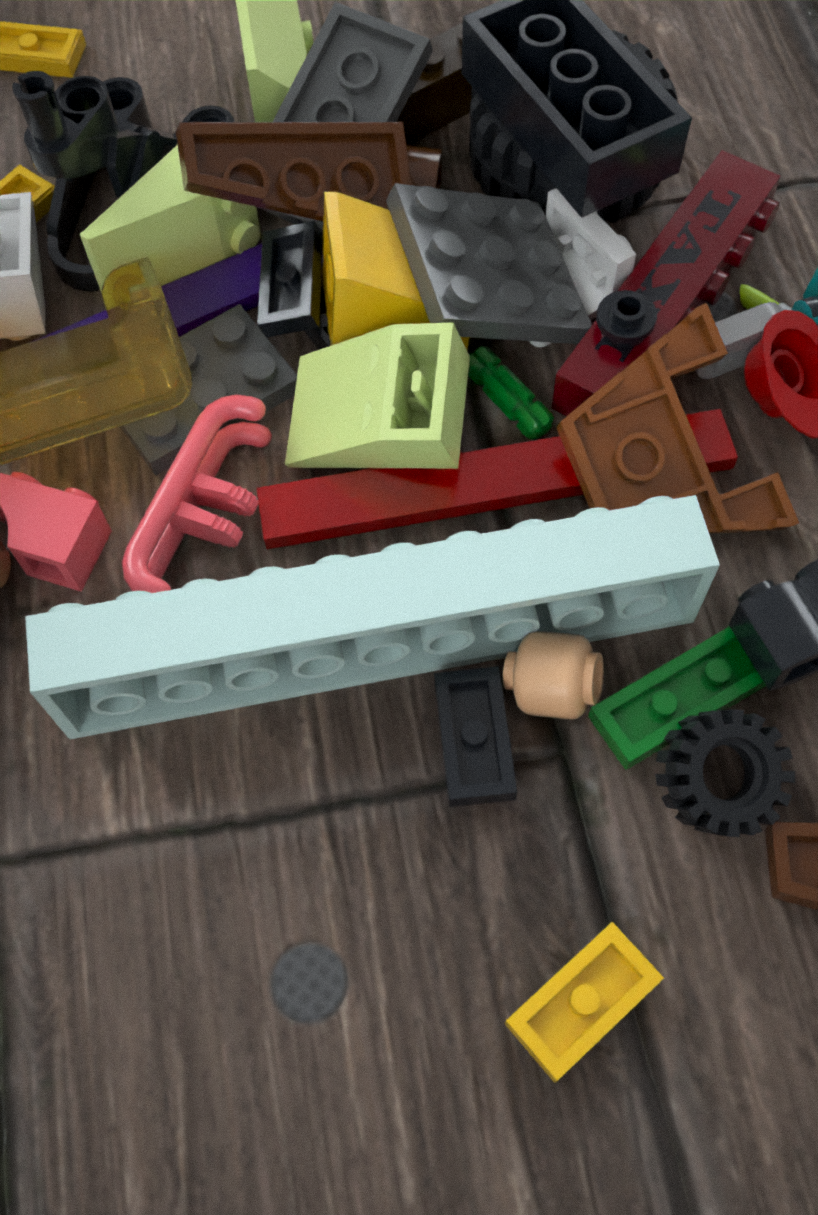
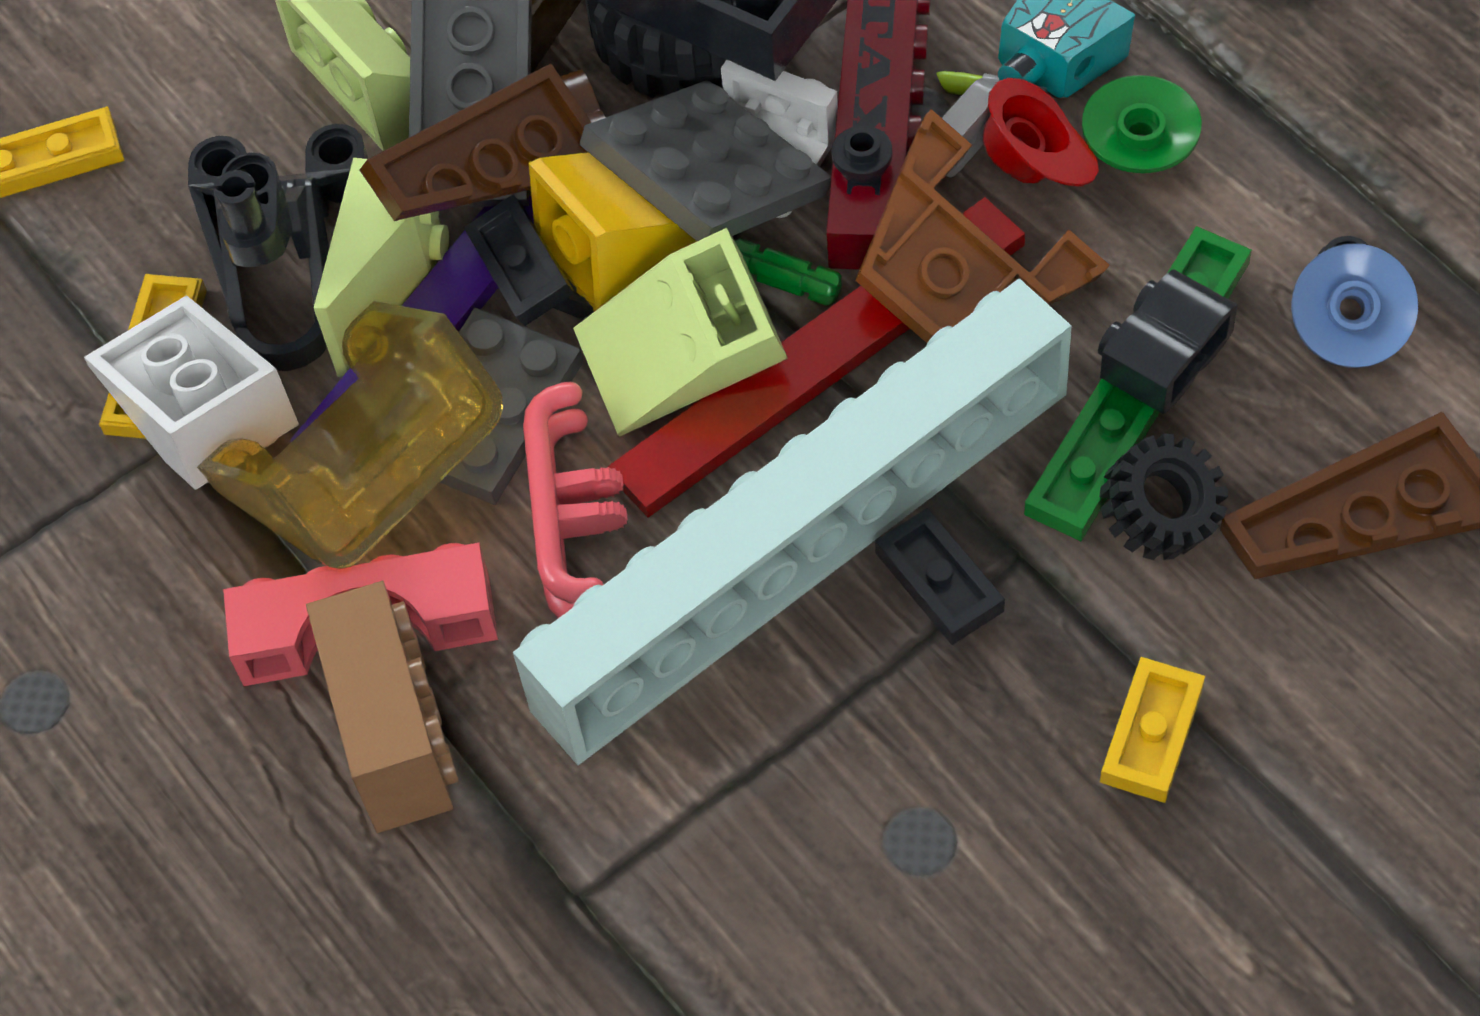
camera: 25 degrees left, 5 degrees down
(554, 675) = (977, 492): light nougat head -> none

